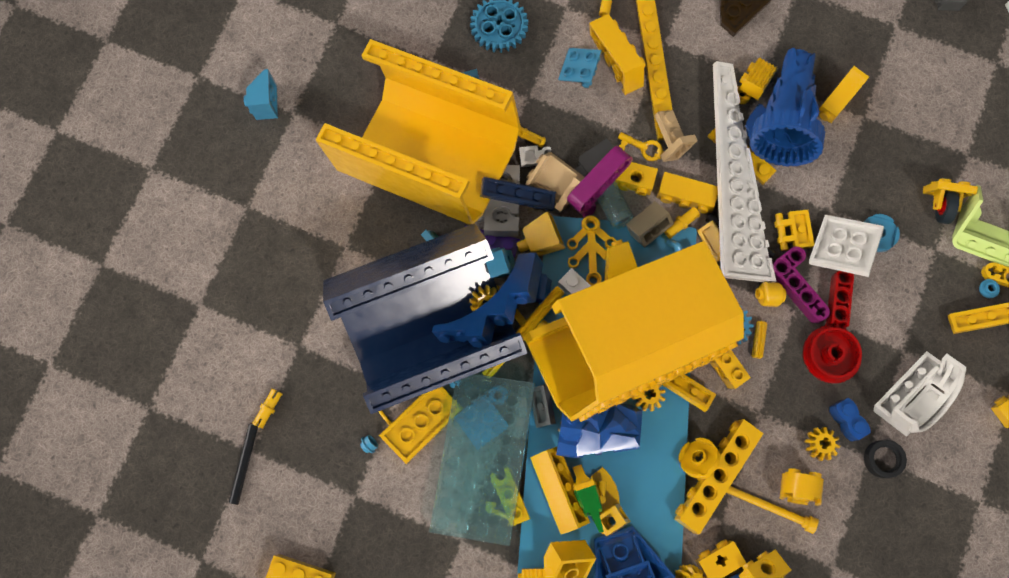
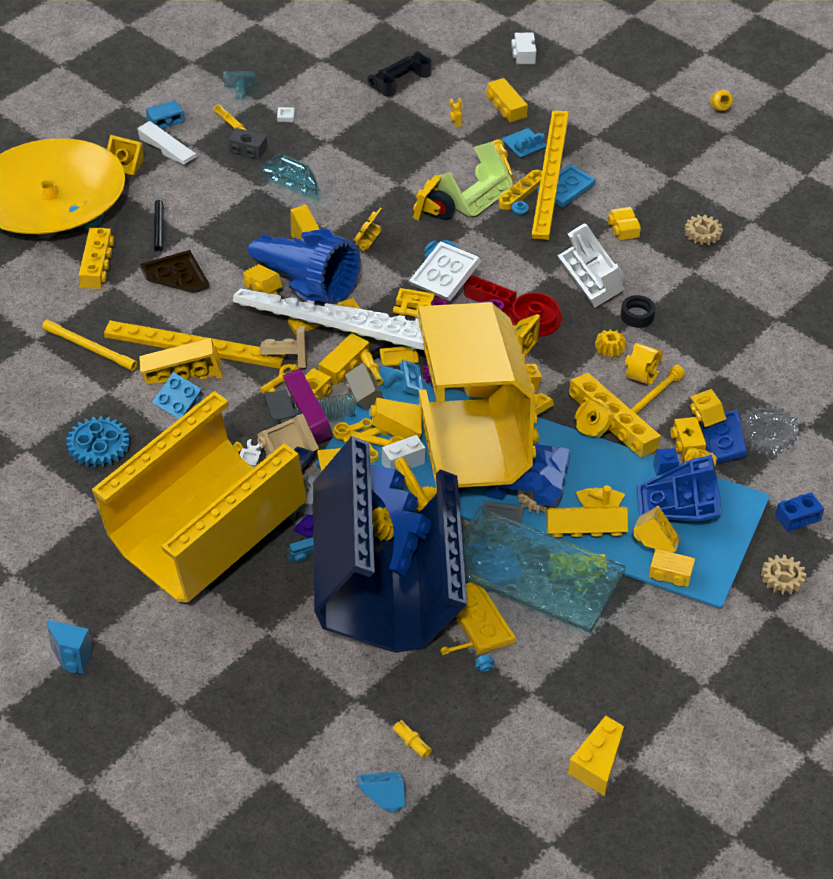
camera: 75 degrees left, 30 degrees down
(207, 399) = (384, 789): none -> dark azure slope
(243, 464) = (463, 778): black piece -> none
(588, 496) = (600, 494): green animal -> none
(618, 515) = (627, 487): yellow brick -> none
(668, 549) = (665, 460): none -> blue brick
(786, 351) = (528, 332): none -> yellow slope
(851, 423) = (596, 319): blue brick -> none
(879, 154) = (369, 232): none -> yellow hinge
(920, 50) = (291, 175): none -> clear light blue wedge

